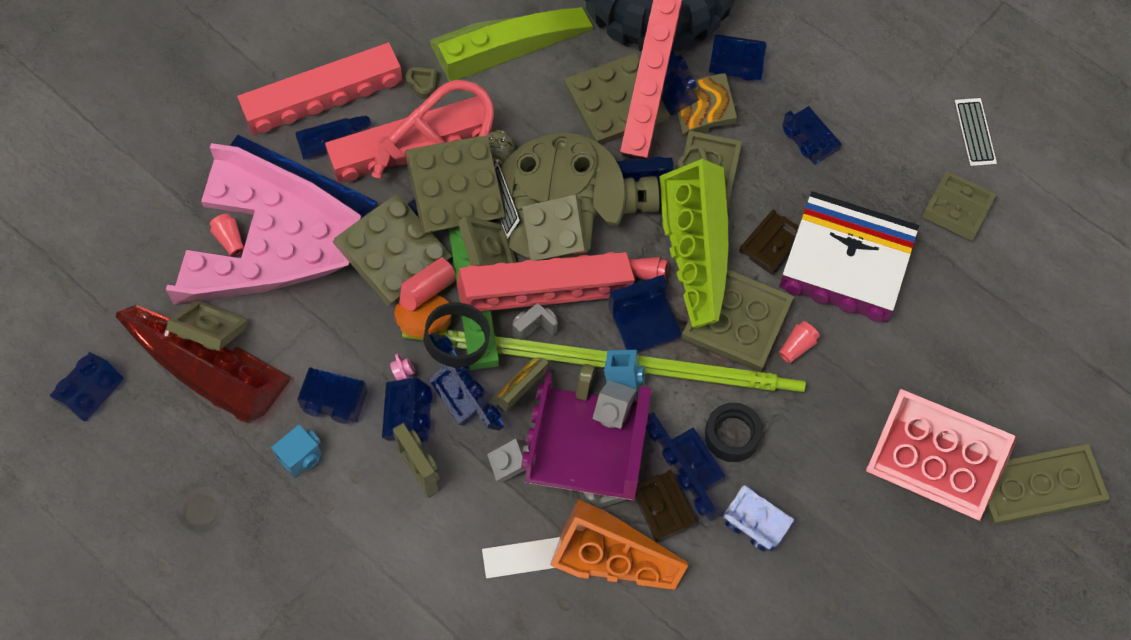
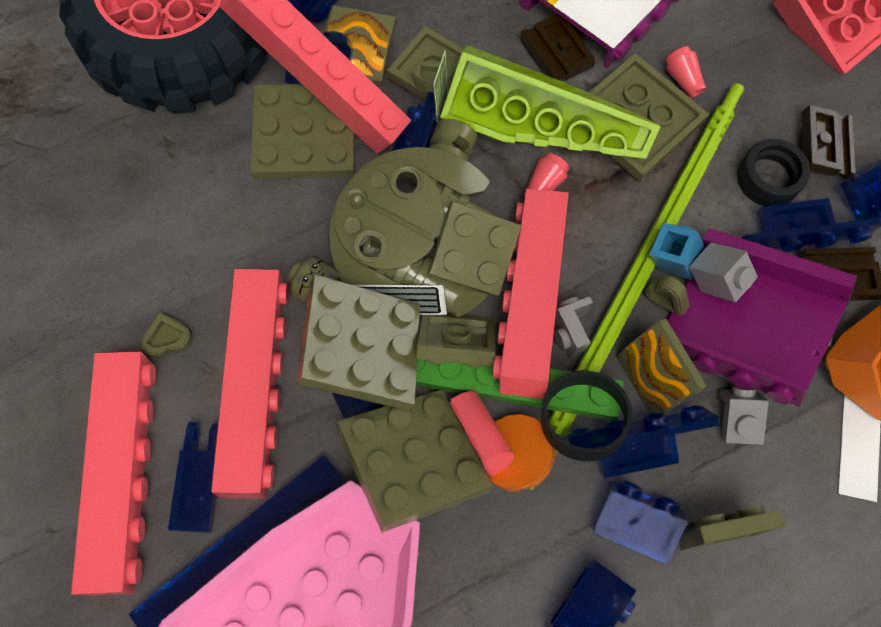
camera: 70 degrees left, 5 degrees up
(387, 144) = (262, 408): coral piece -> none
(402, 368) = (582, 505): bright pink plate -> none
(502, 40) = (153, 229): lime wedge -> none
(644, 314) = (606, 206): clear blue bracket -> none
(665, 155) = (440, 87): none -> sticker
(784, 468) = (828, 141): none -> dark brown plate

